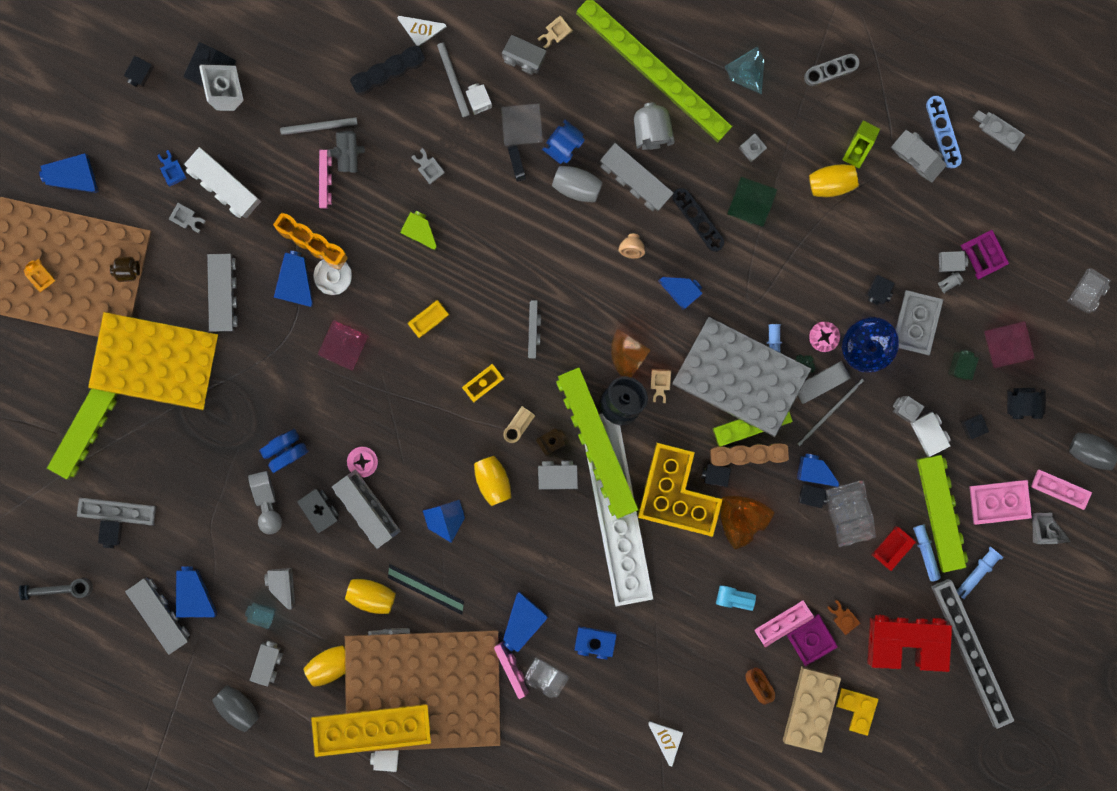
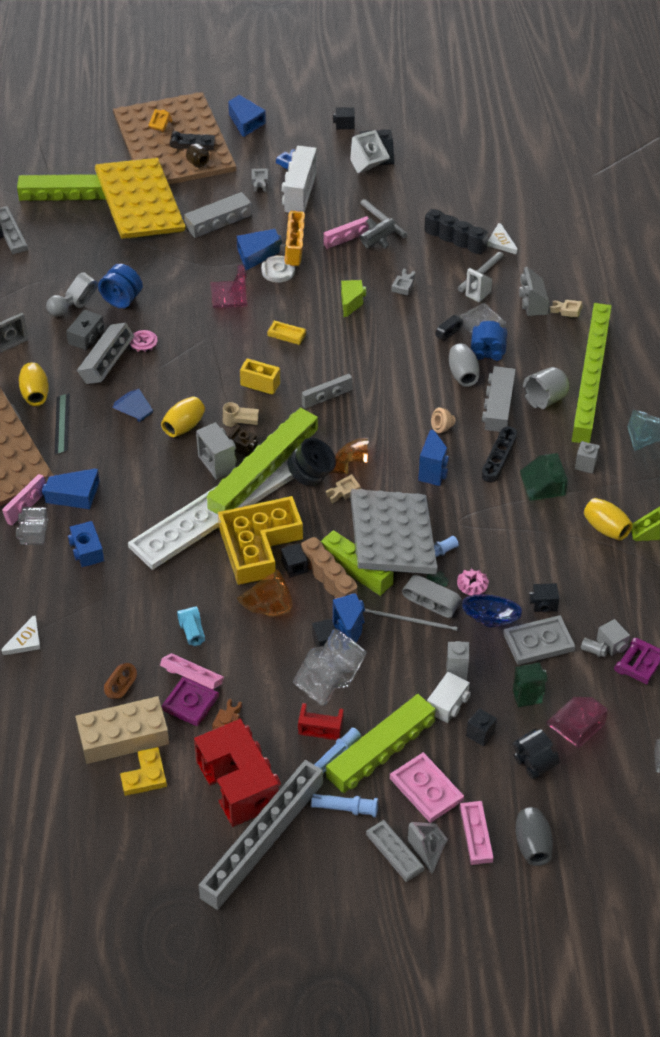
camera: 60 degrees right, 40 degrees down
(90, 257) = (184, 141): none -> black plate
(1040, 560) = (395, 850): none -> light grey plate

